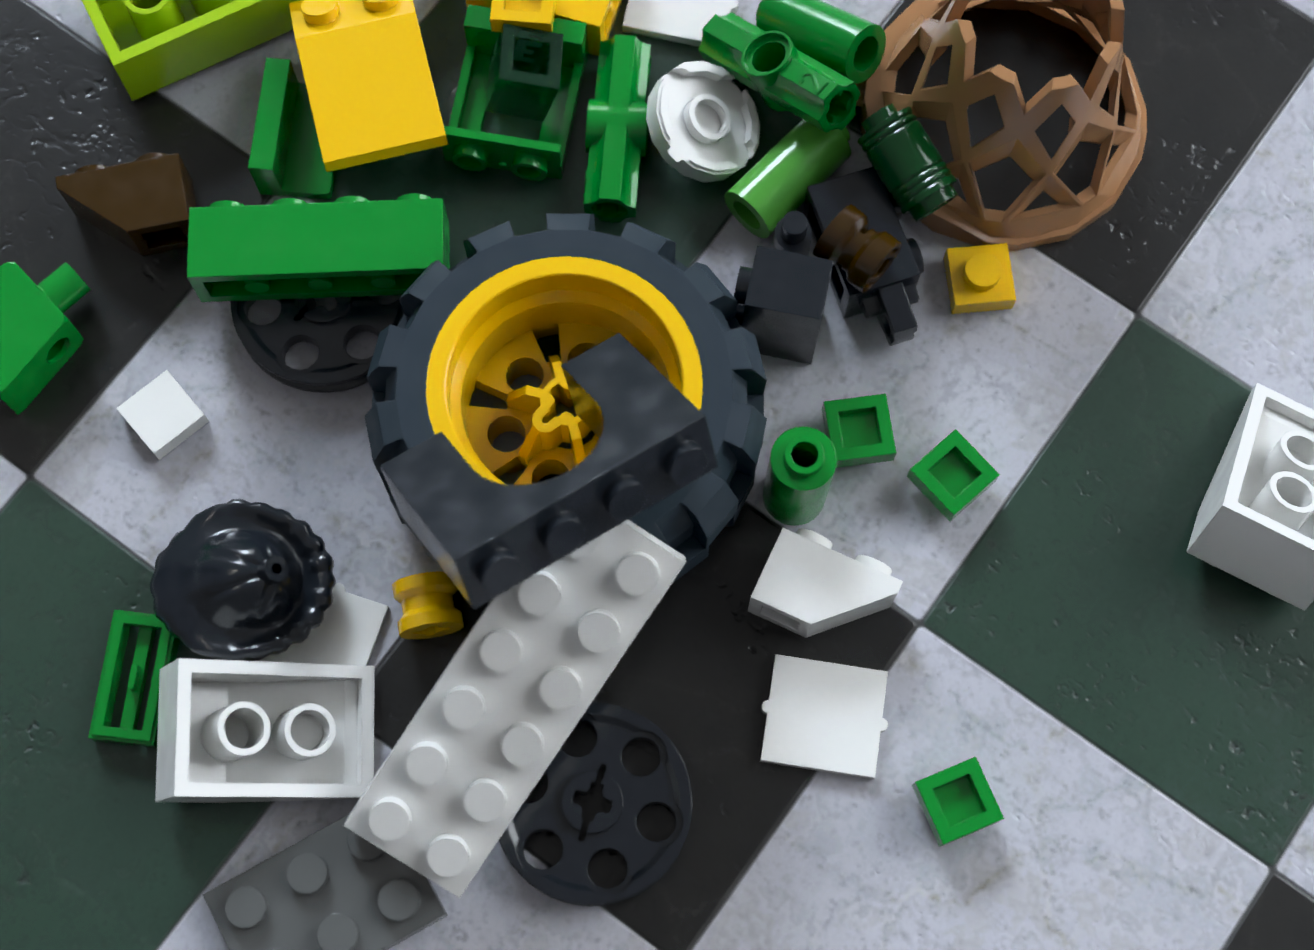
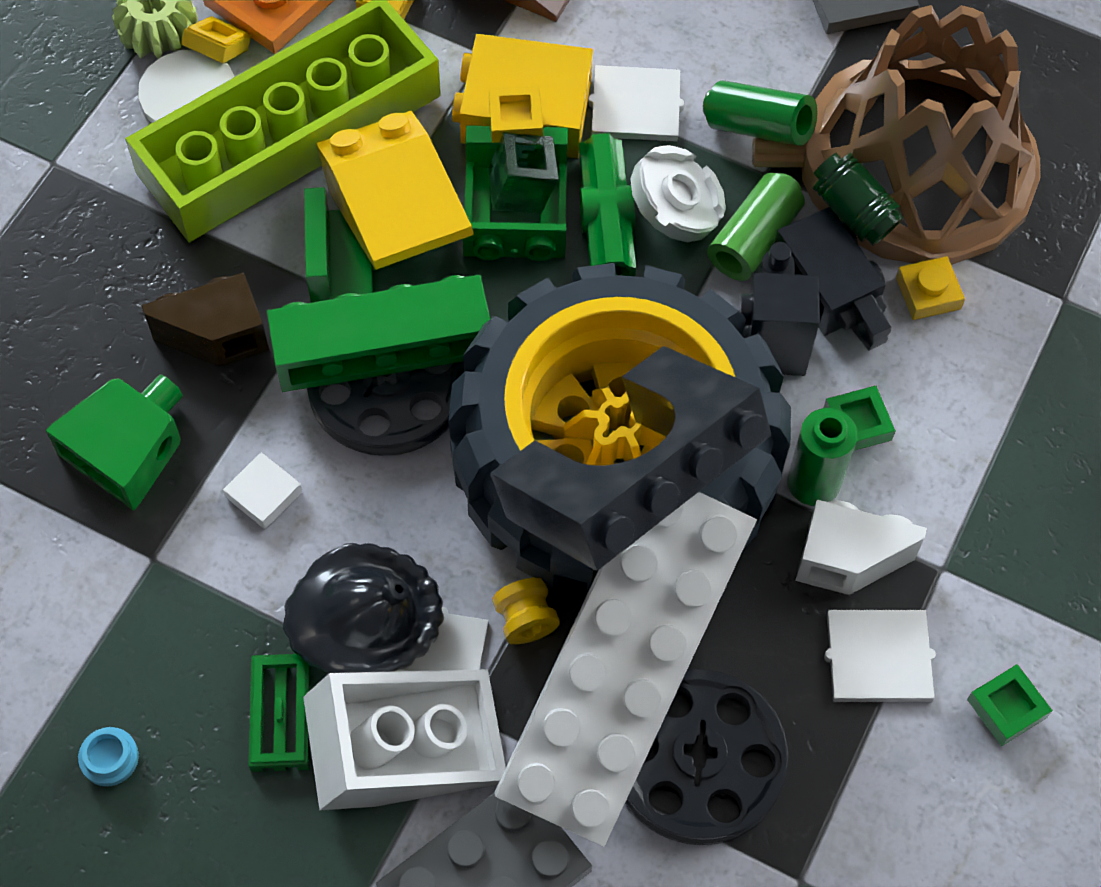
camera: 10 degrees left, 10 degrees down
(780, 72) = (736, 144): green piece -> none
(860, 251) = (837, 271): dark brown wheel -> none
(952, 475) = (945, 443): green plate -> none

